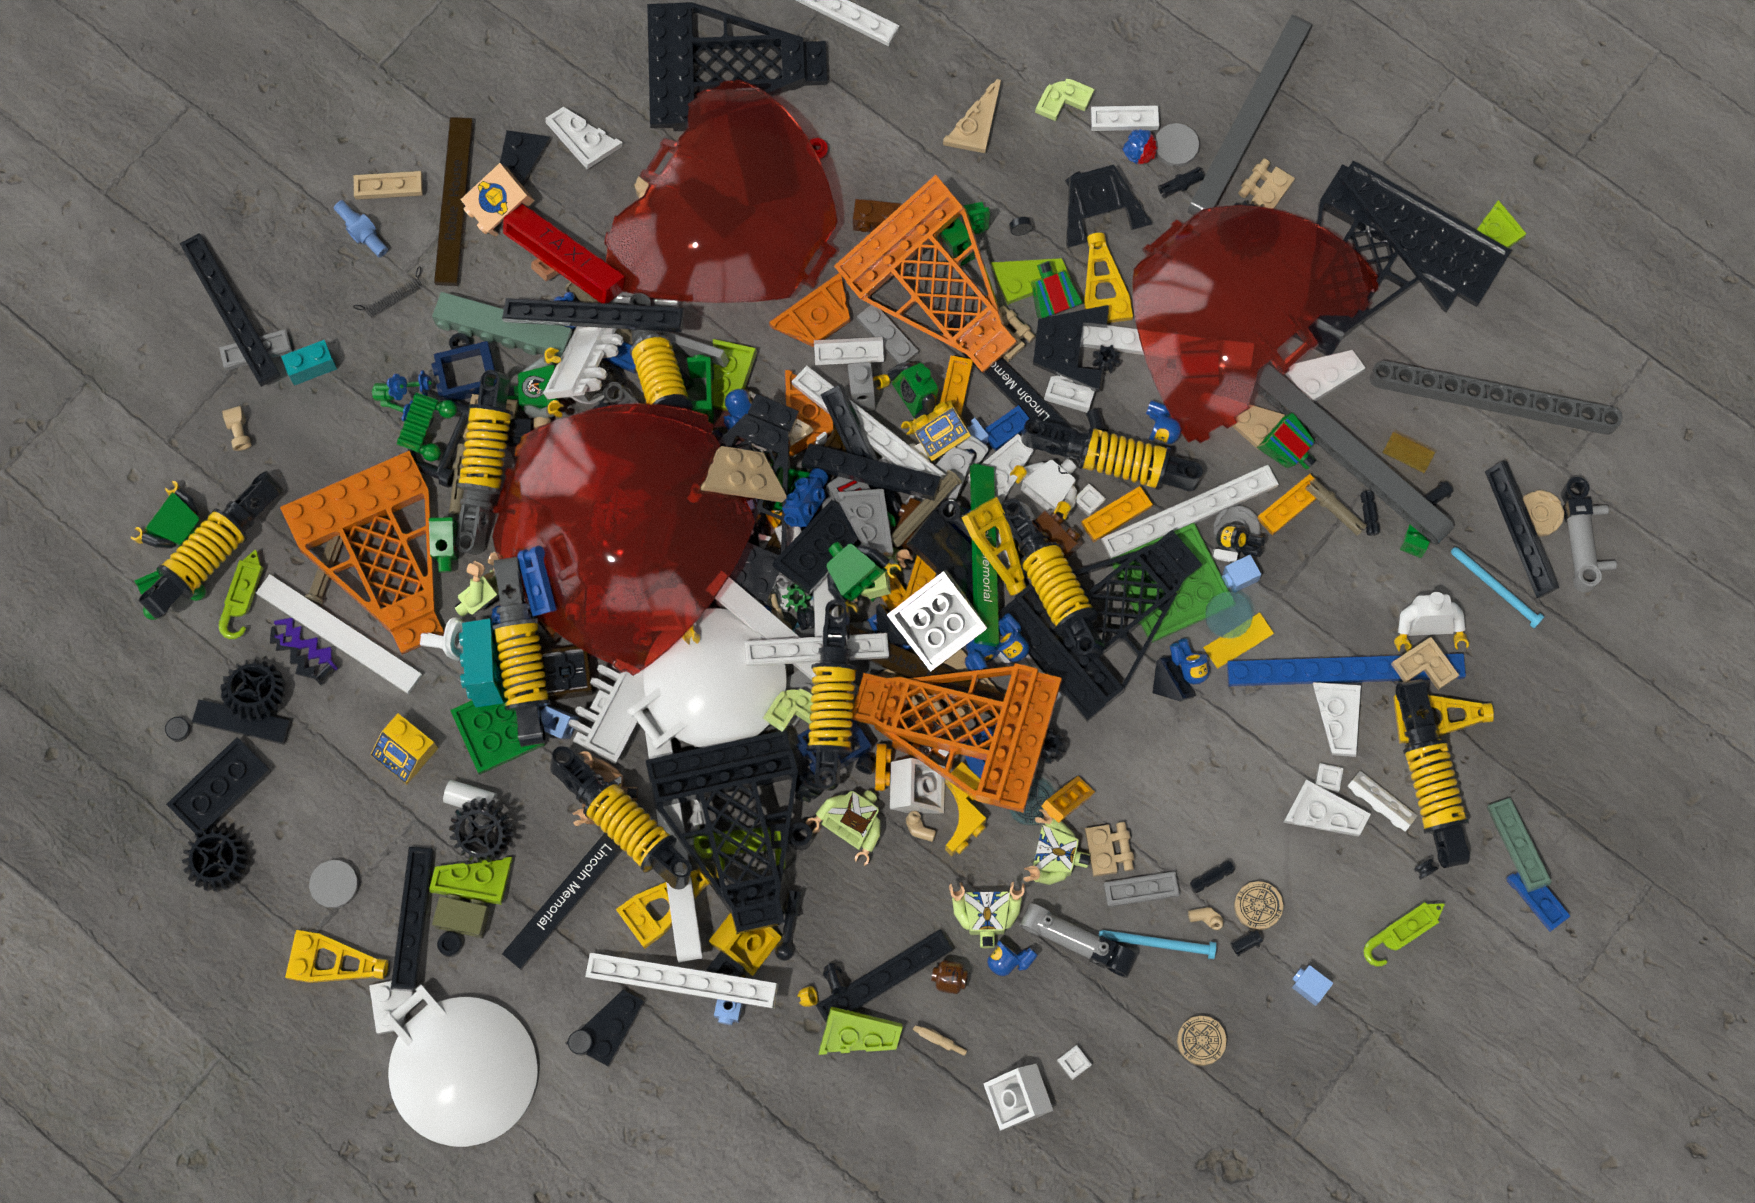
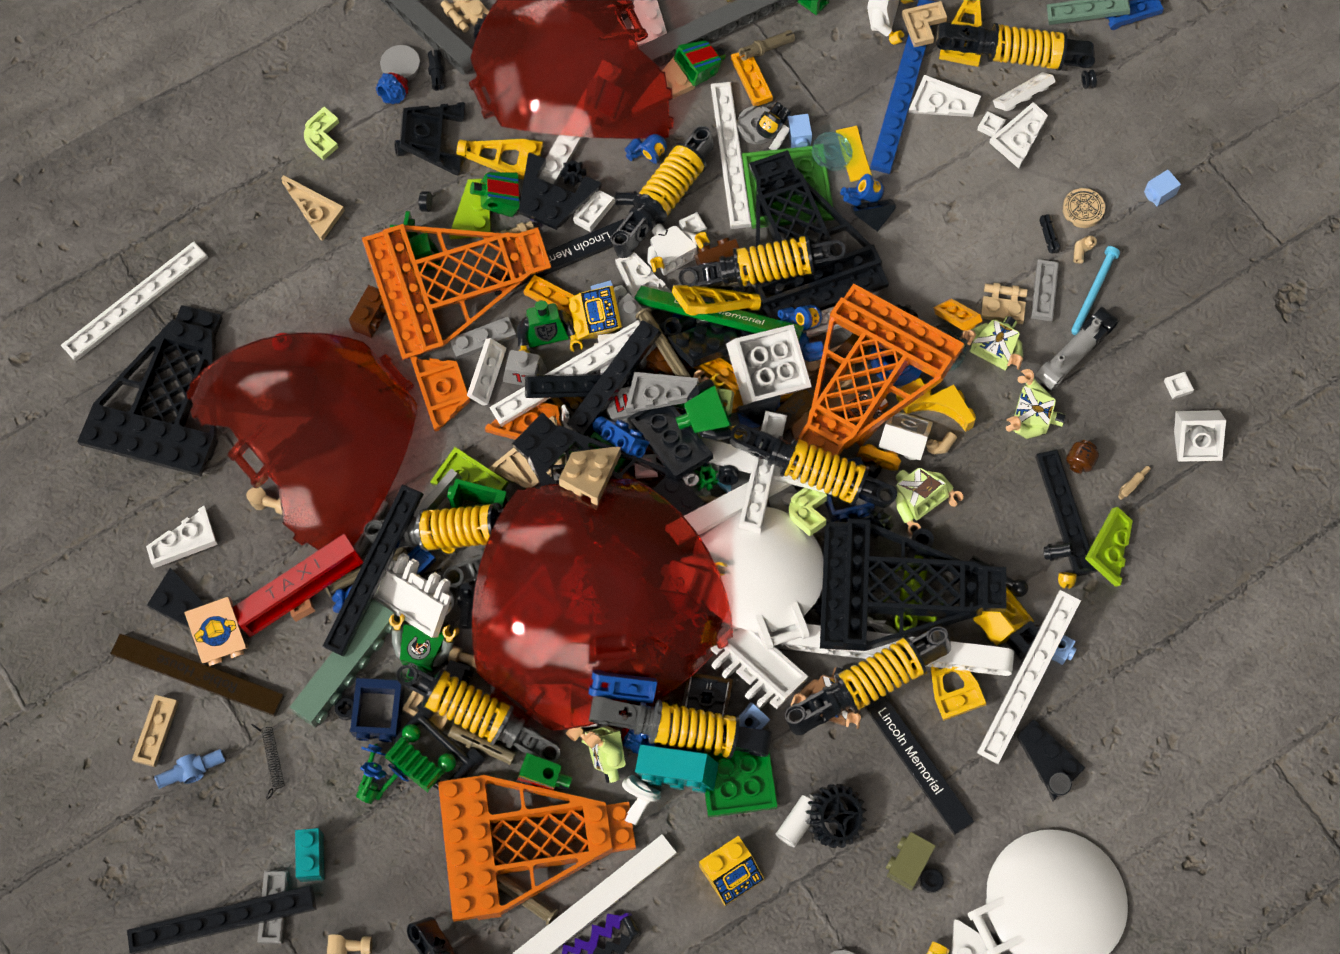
camera: 70 degrees left, 5 degrees down
(412, 919) = (899, 907): black tile -> none
(473, 881) = (878, 840): lime wing -> none
(738, 405) = (510, 473): blue piece -> none
(1005, 959) = (1079, 409): blue piece -> none
(1006, 427) = (605, 266): blue plate -> none
(1116, 514) = (714, 207): light orange plate -> none
(1124, 118) = (360, 93): white plate -> none
(1201, 1040) = (1185, 284): tan tile -> none
(1246, 942) = (1112, 224): black pin -> none
(1370, 513) = (777, 25): black axle -> none
(1404, 930) = (1134, 110): lime plate -> none

